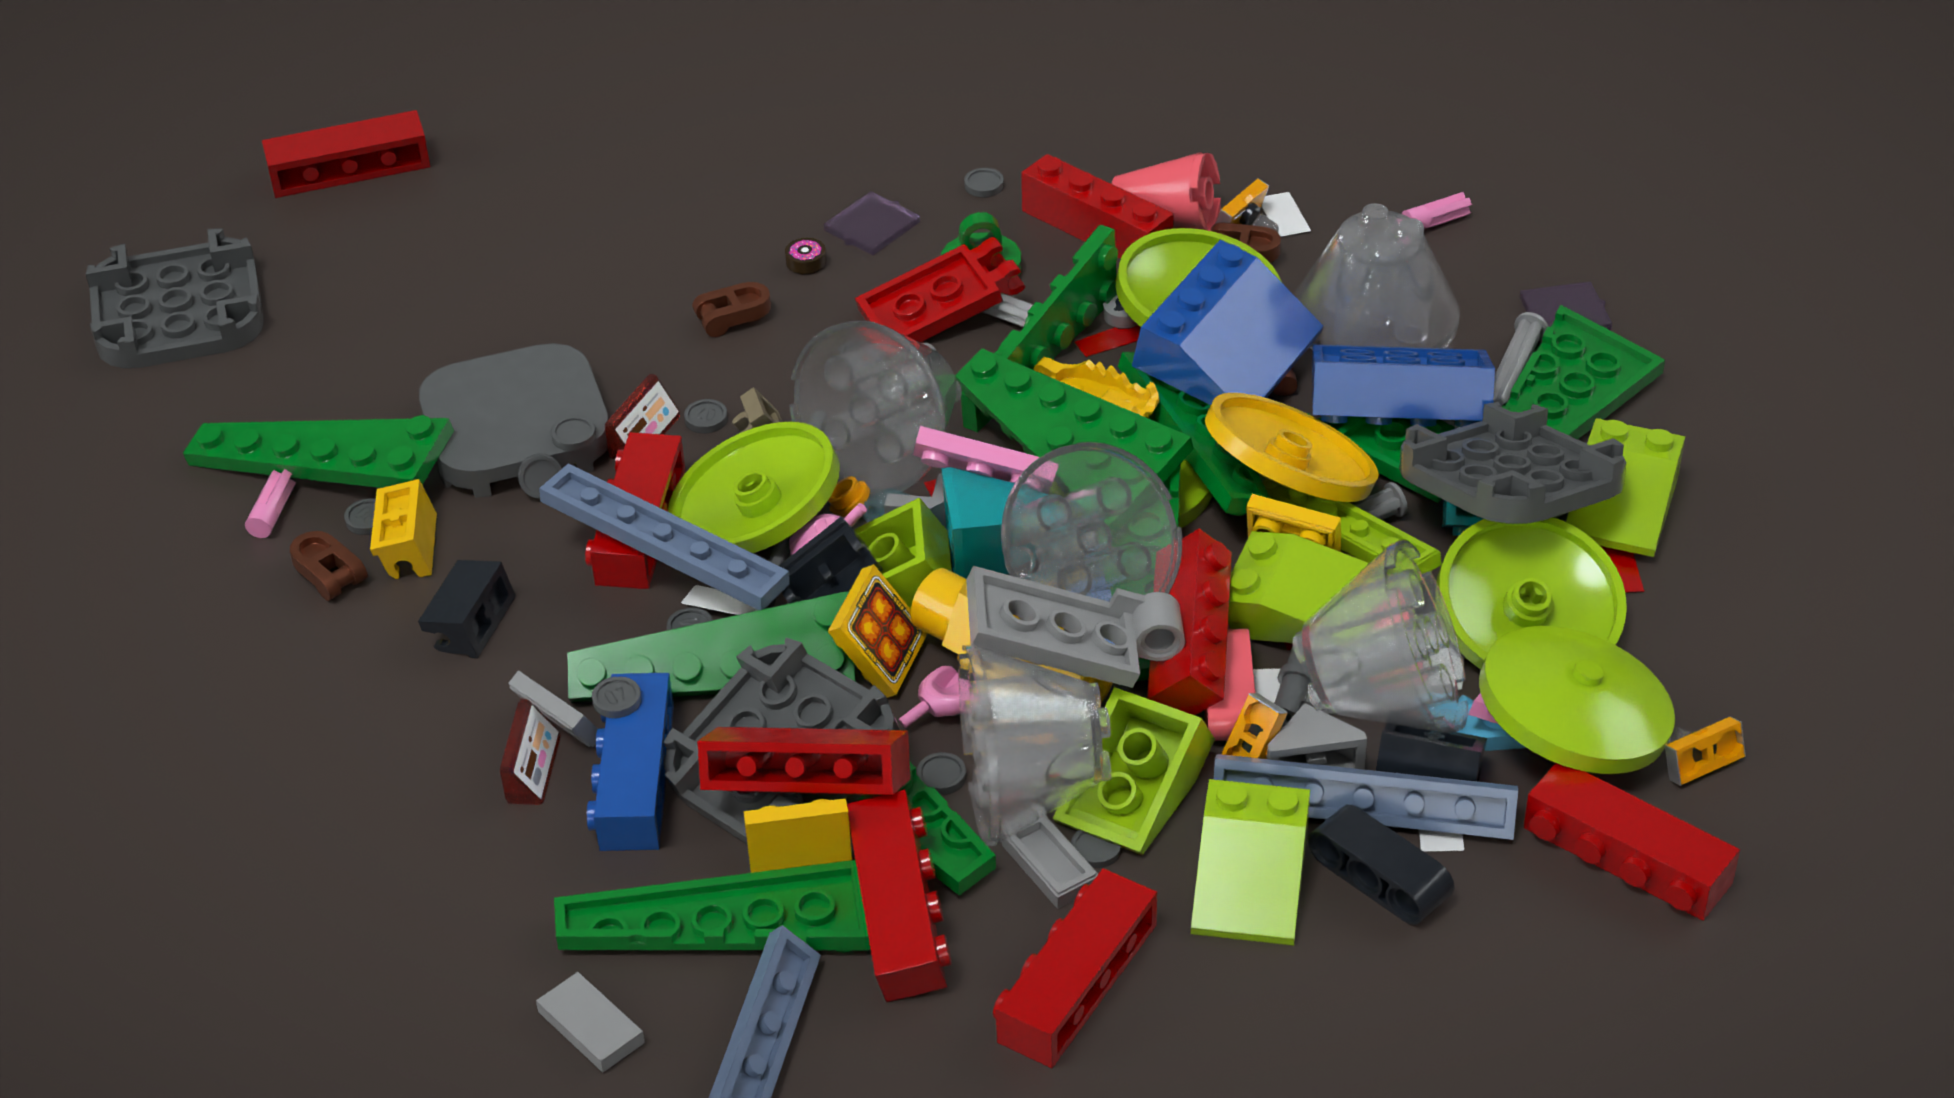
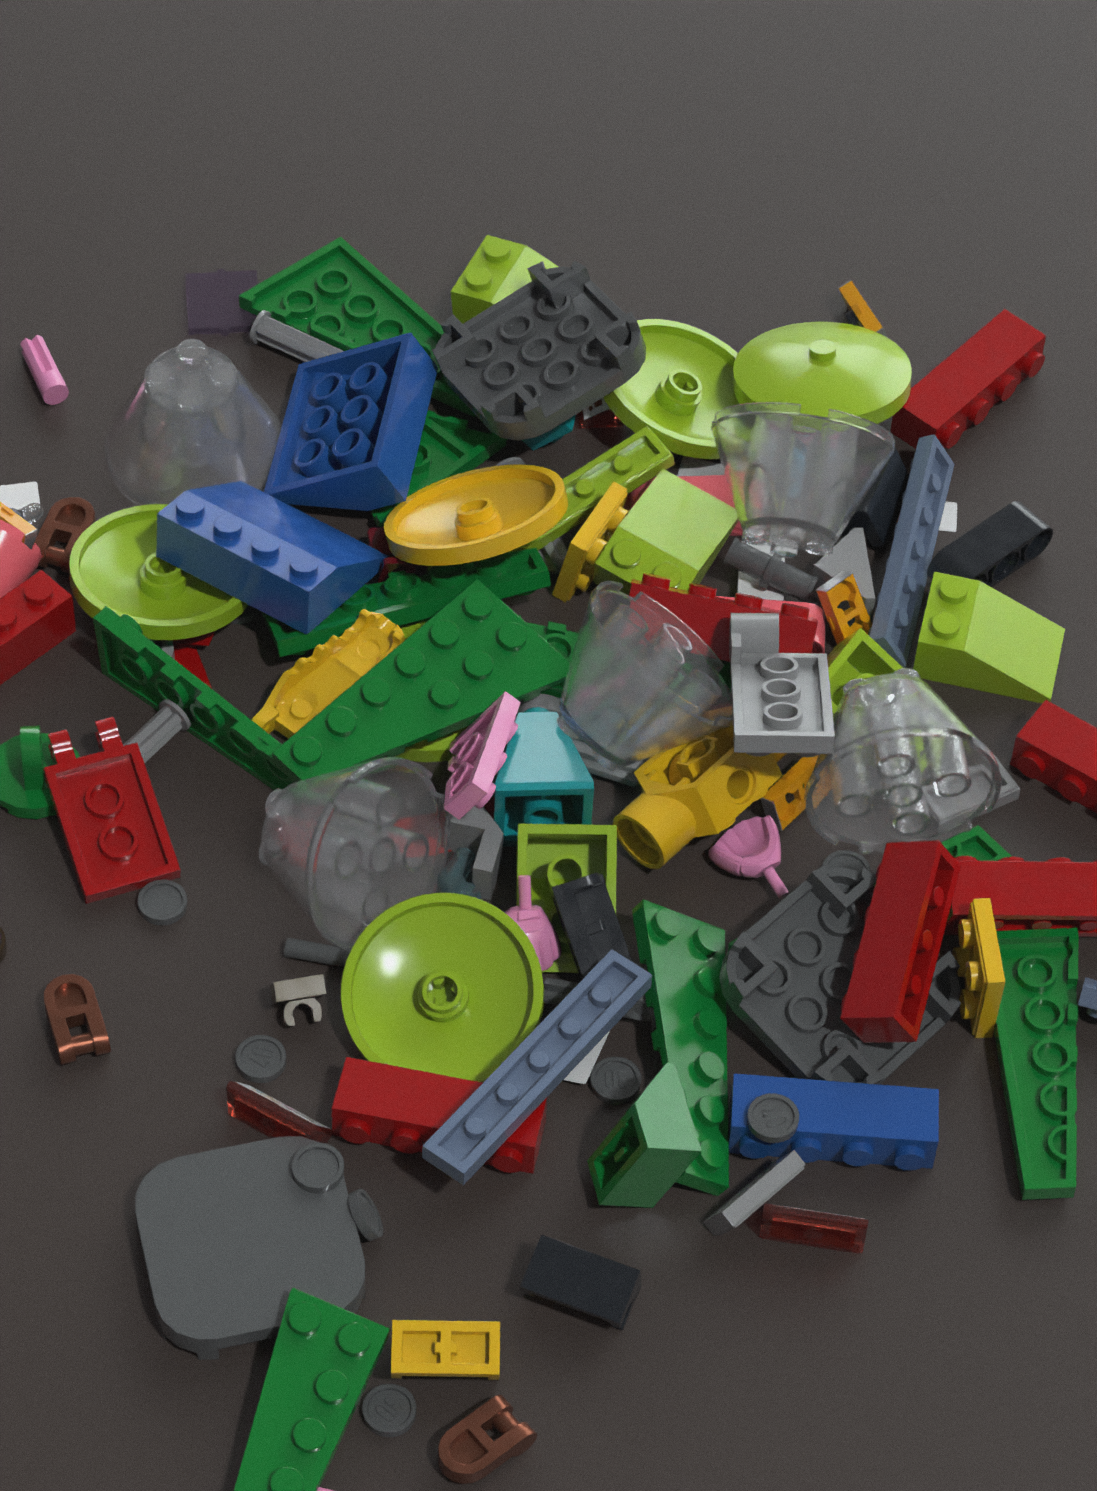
camera: 90 degrees left, 10 degrees up
(593, 609) = (646, 1146): none -> green slope
(877, 631) = (664, 888): tile -> none

